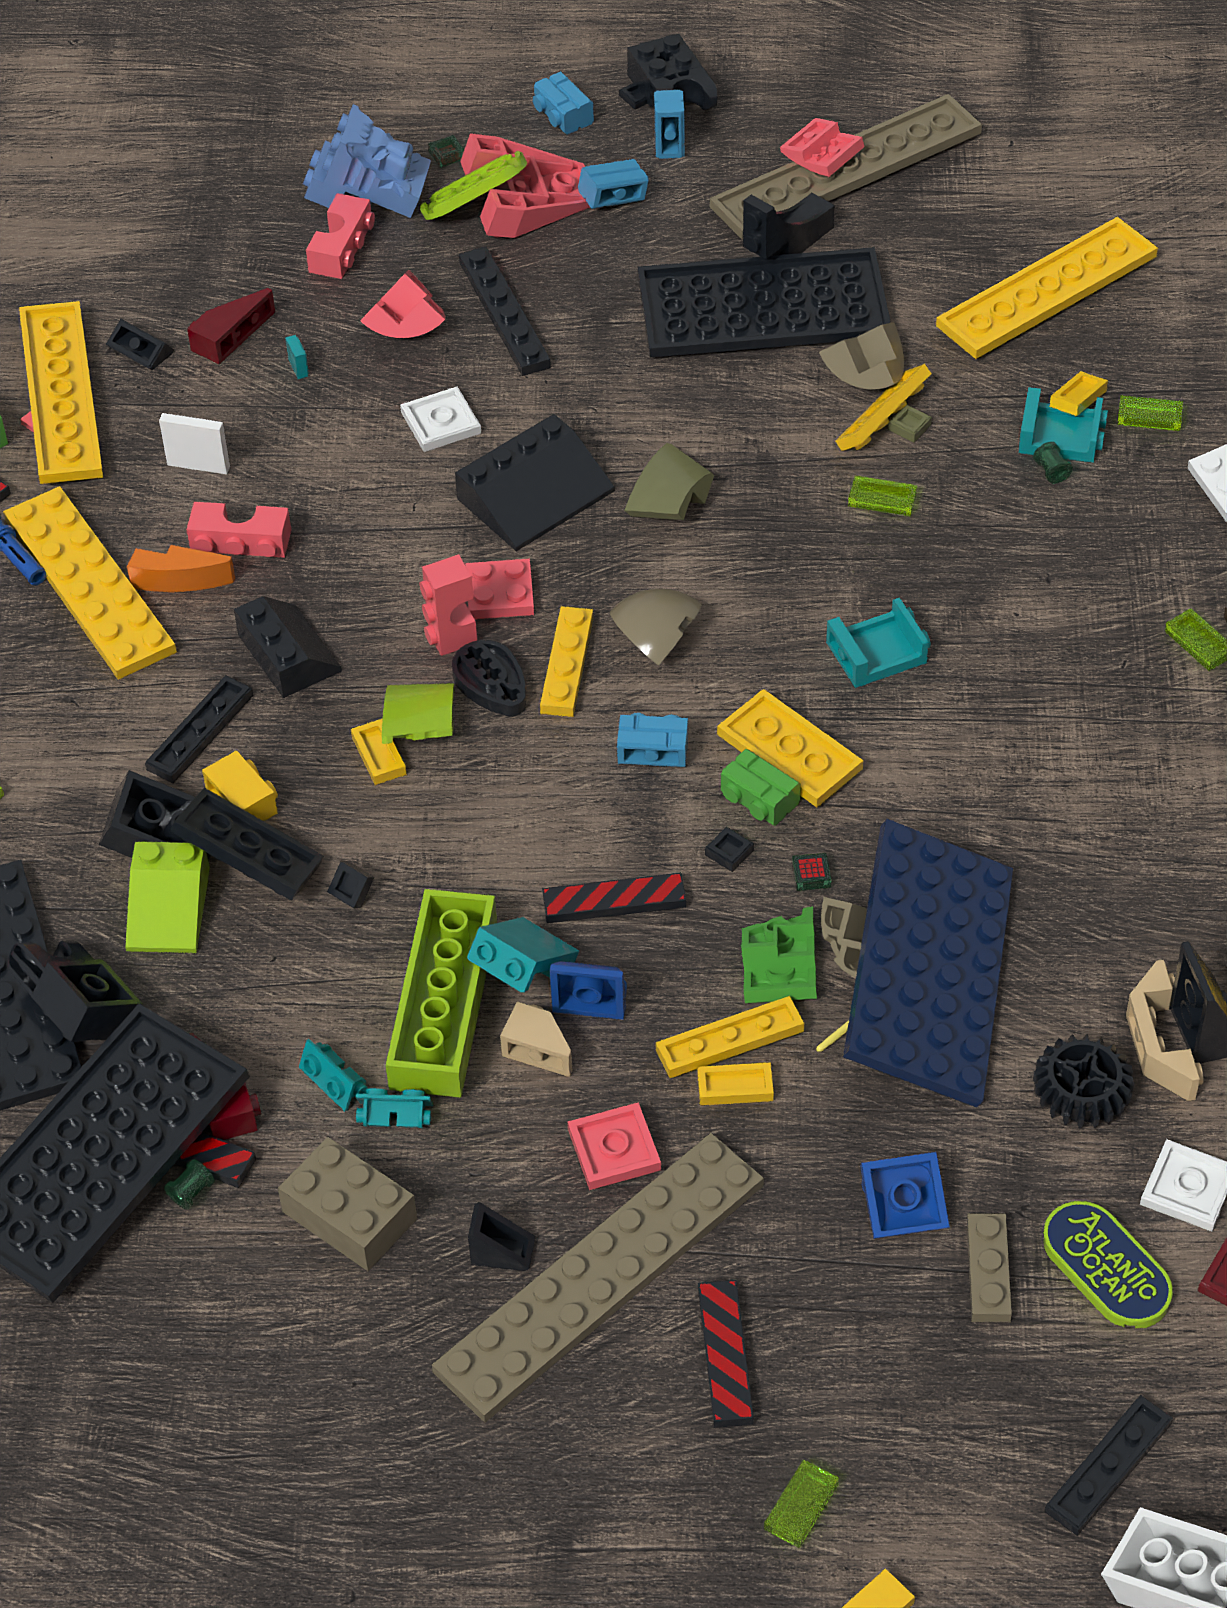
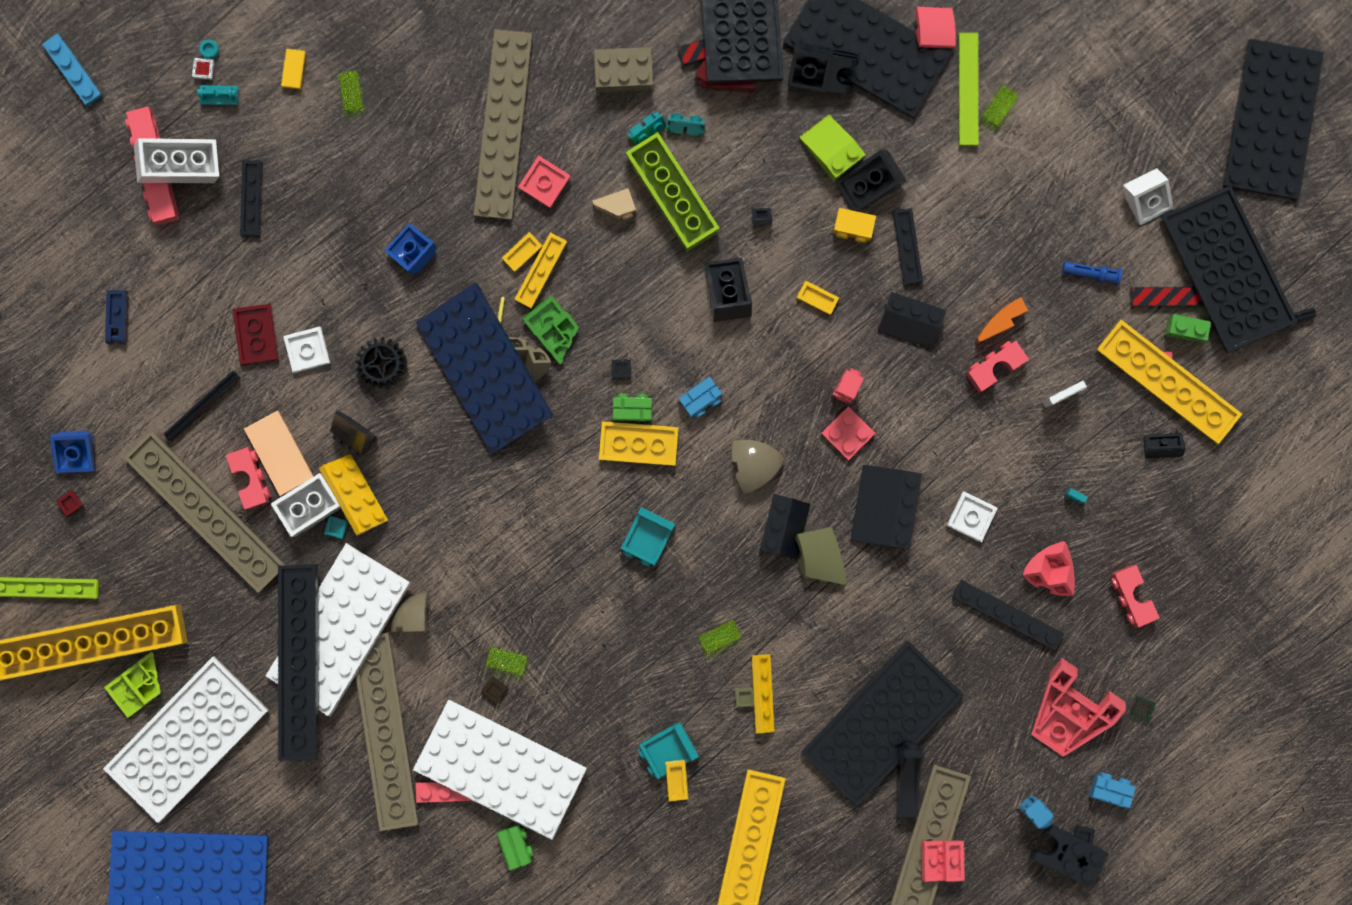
camera: 135 degrees right, 35 degrees up
(90, 583) = (1040, 285): yellow plate -> none
(189, 1184) = (694, 29): clear green bush -> none
(229, 325) = (1129, 486): dark red slope -> none
(247, 844) = (818, 193): black plate -> none
(368, 166) = (1159, 646): medium blue brick -> none
(418, 711) = (816, 327): lime slope -> none
(473, 185) = (1094, 680): lime tile -> none
(485, 691) = (811, 369): black piece -> none
(486, 832) = (728, 289): none -> black slope
(498, 1241) = (551, 103): black slope -> none
(518, 951) = (651, 231): teal panel -> none
(566, 661) = (780, 416): yellow plate -> none
(588, 990) = (614, 242): blue slope -> none
(613, 183) = (1029, 745): dark azure brick -> none
(614, 897) = (648, 303): black tile -> none
(689, 547) = (783, 523): none -> black slope
(725, 1354) = (428, 129): tile -> none
(811, 871) = (576, 384): tile -> none
(868, 360) = (795, 721): dark tan brick -> none
(988, 1268) = (357, 247): dark tan plate -> none
(1055, 466) = (654, 721): clear green bush -> none
(1107, 1264) = (312, 285): tile -> none
(1150, 413) = (634, 798): clear neon green tile -> none
(1169, 1069) = (385, 431): tan slope -> none

